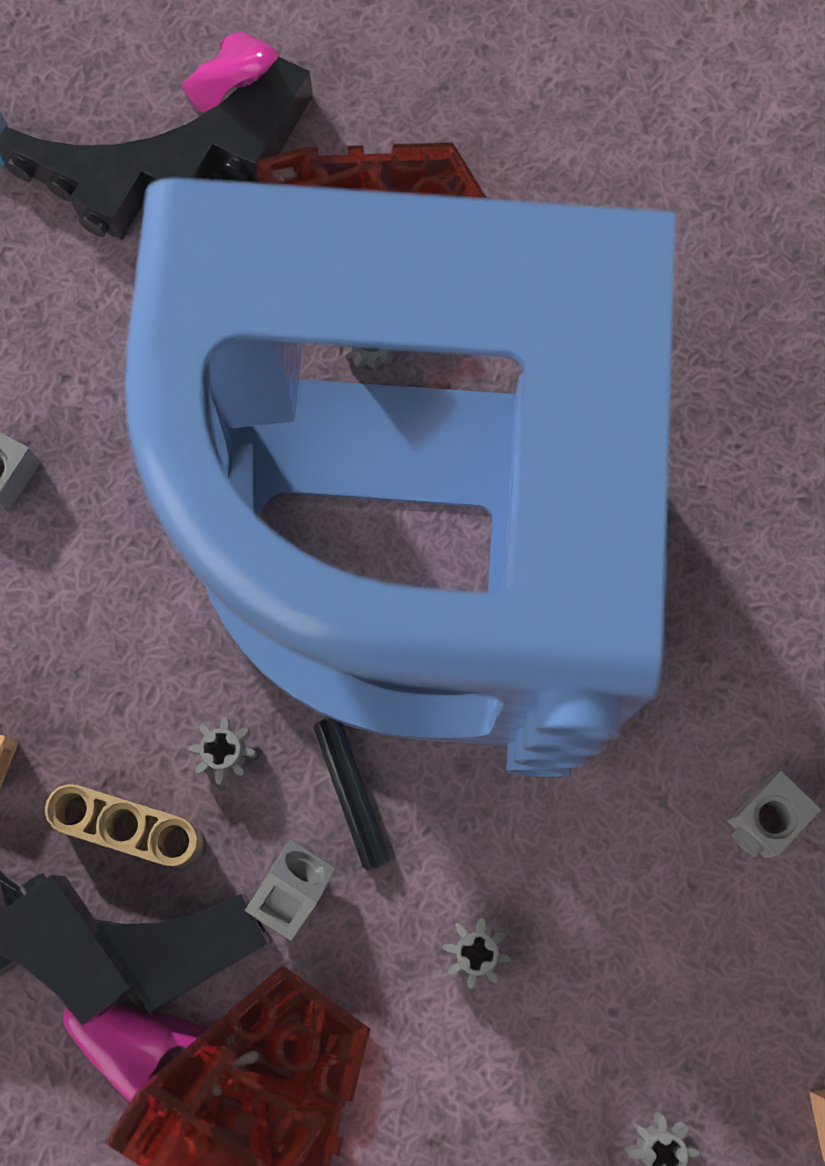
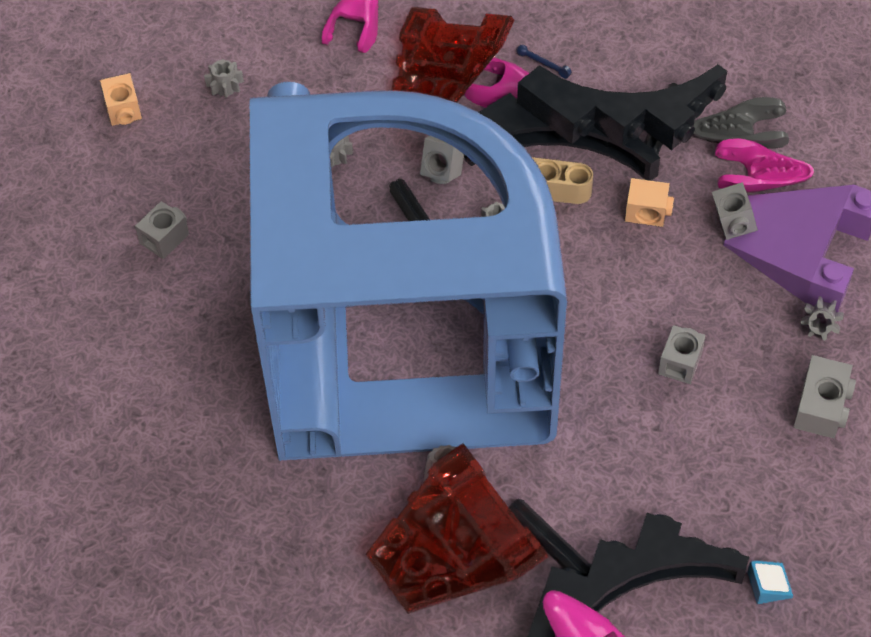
camera: 175 degrees right, 20 degrees down
(42, 1085) = (563, 71): none -> dark blue hinge

